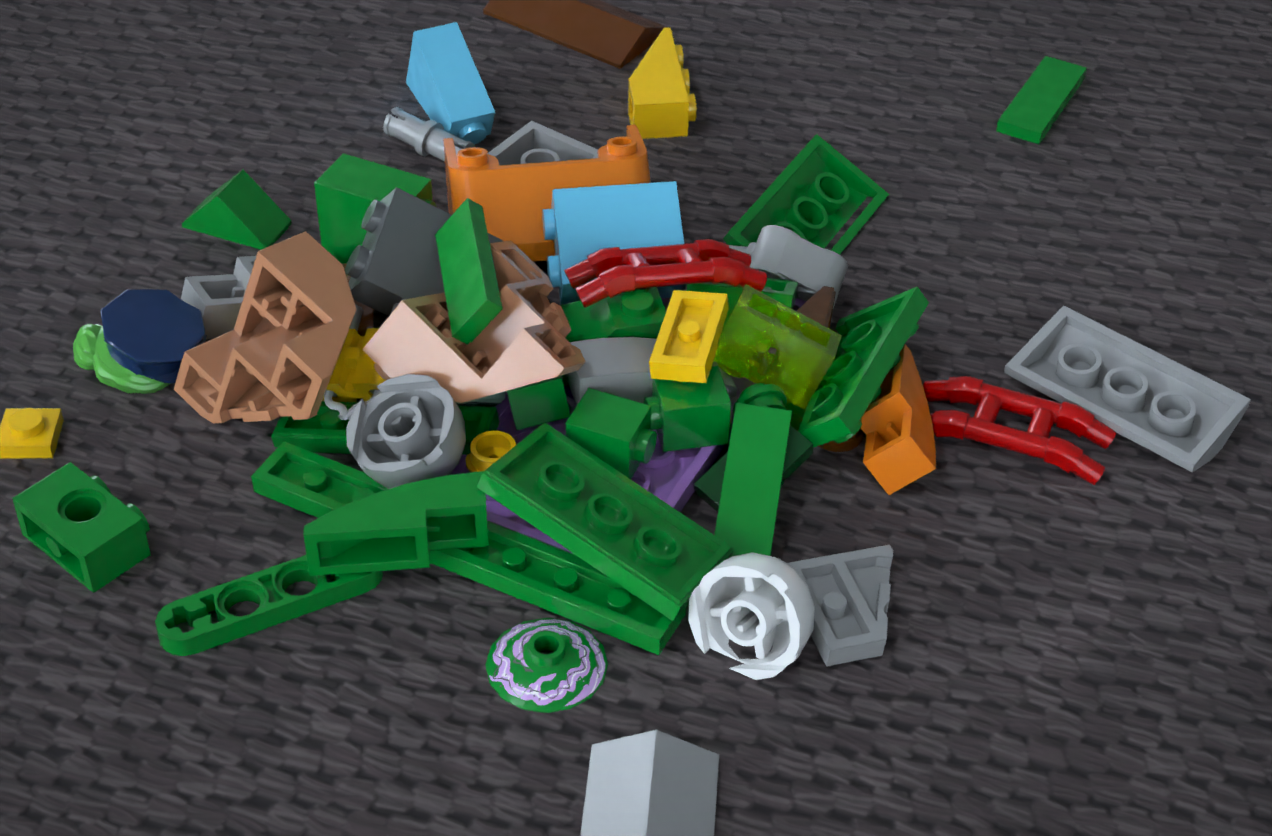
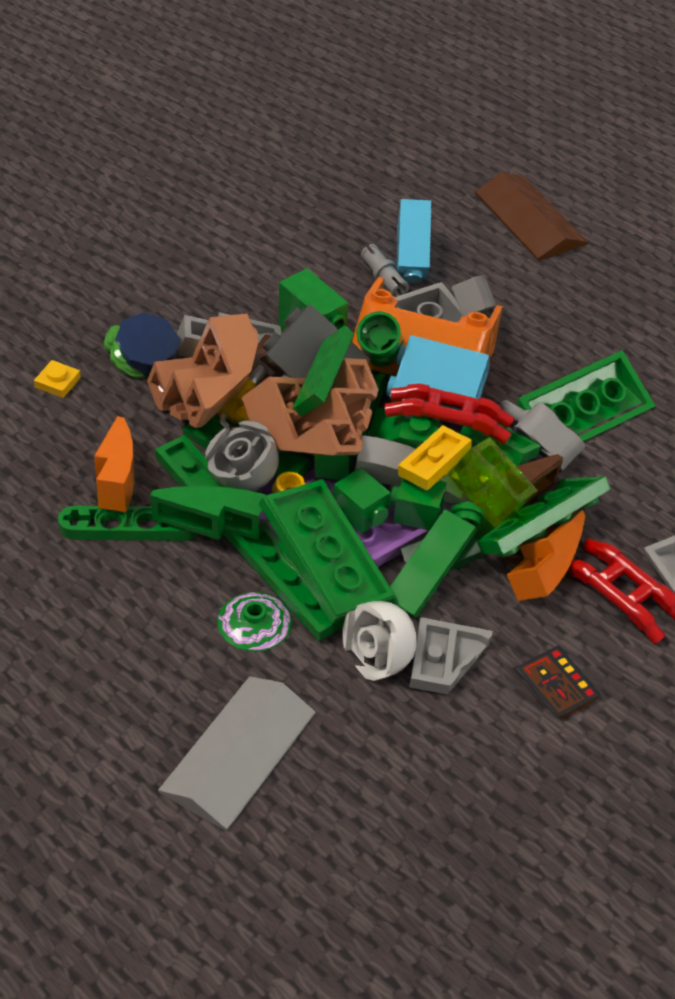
camera: 25 degrees right, 5 degrees up
(83, 526) = (53, 444): green brick -> none
(212, 521) = (115, 468): none -> orange slope
(240, 214) = (245, 285): green slope -> none
(512, 205) = (380, 338): none -> green wheel
(591, 121) = (474, 295): none -> light grey slope
(660, 91) = (544, 285): yellow slope -> none
(1014, 578) = (559, 682): none -> piece

